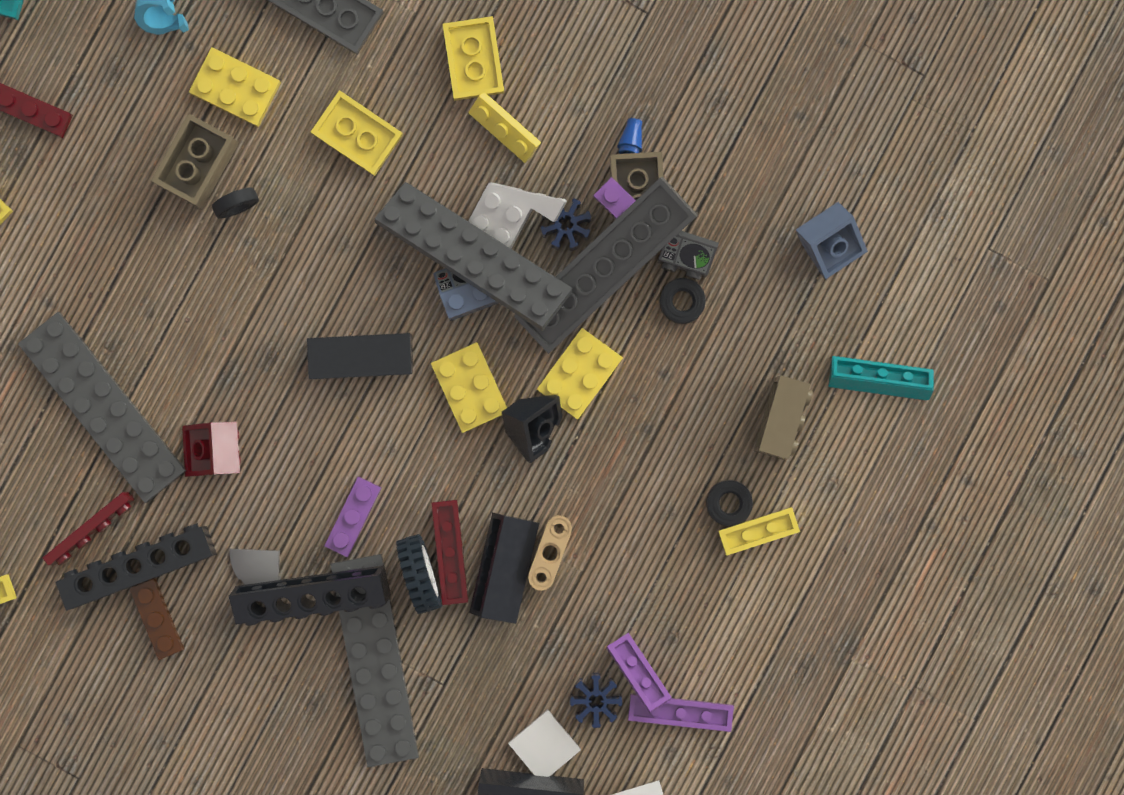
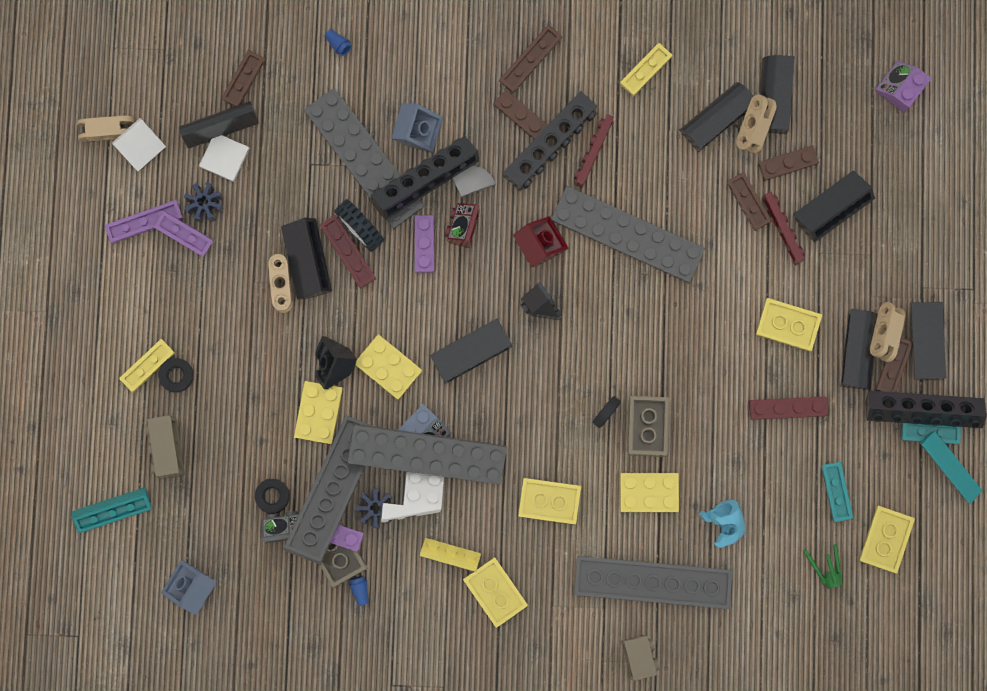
camera: 155 degrees right, 5 degrees down
(108, 684) = (530, 58): none -> reddish brown plate
(248, 373) = (540, 303): none -> black slope
(290, 666) = (417, 127): none -> sand blue slope
(293, 515) = (463, 224): none -> slope

